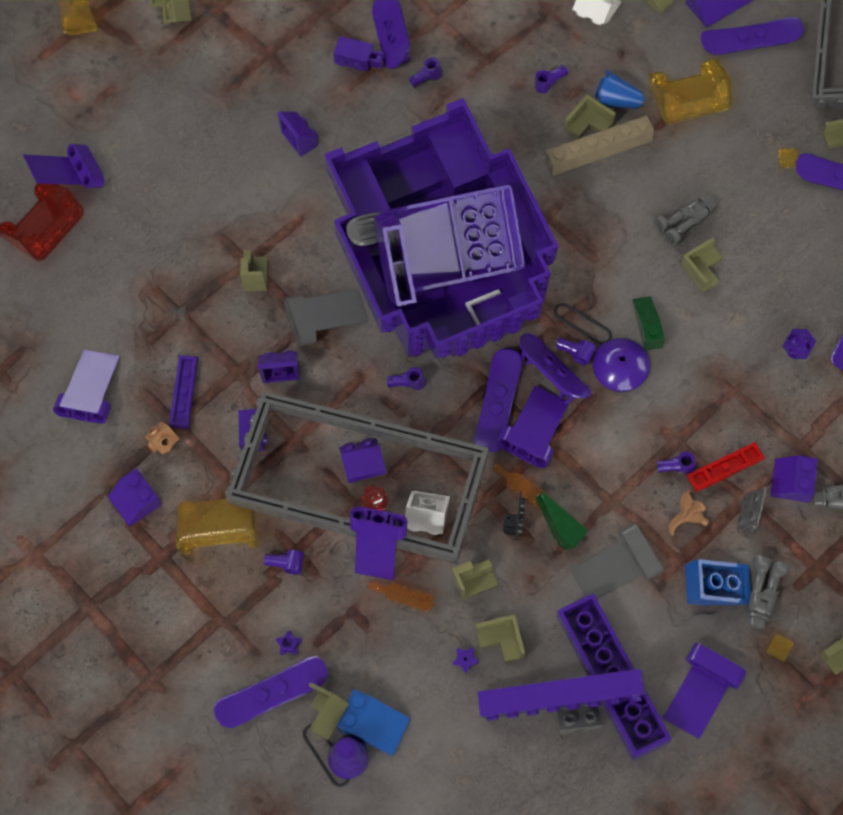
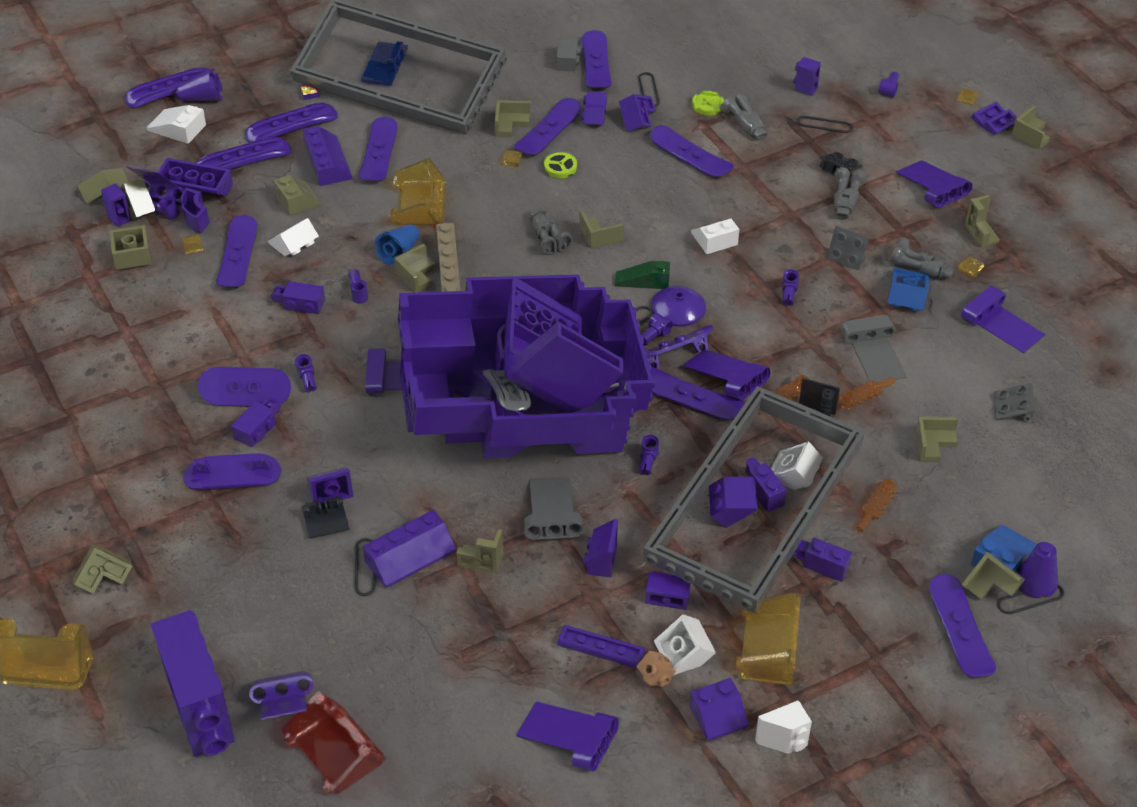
camera: 80 degrees left, 20 degrees down
(54, 101) = (194, 683): none -> dark purple brick
(117, 555) = (784, 728): none -> white slope
(195, 457) = (685, 644): none -> white slope
(229, 195) = (356, 570): none -> black piece
(245, 215) = (408, 548): none -> dark purple slope
(267, 142) = (325, 517): none -> black hinge
(290, 562) = (823, 586): dark purple pin -> none
(292, 647) = (909, 601): dark purple plate -> none
(300, 58) = (232, 471): none -> dark purple piece
(319, 556) = (824, 558): none -> dark purple brick
(375, 498) = (793, 475): clear red head -> none
(376, 540) = (827, 482): dark purple piece -> none
(400, 484) = (768, 487): none -> dark purple brick
(461, 654) = (947, 475): dark purple plate -> none
(473, 579) = (875, 450): olive panel -> none
(519, 37) = (300, 297): none -> dark purple brick
(549, 562) = (850, 398): none -> clear orange piece
(561, 524) = (832, 370): dark green slope -> none
(562, 694) = (1003, 399): dark purple brick -> none
(602, 653) = (985, 368): dark purple brick -> none
(690, 512) = (838, 288): medium nougat piece -> none
(725, 467) = (800, 260): red plate -> none
(735, 376) = (717, 236): none -> white slope
(794, 205) = (560, 165): none -> lime tile
(794, 478) = (821, 219): dark purple slope -> none
(799, 344) = (698, 188): dark purple brick -> none

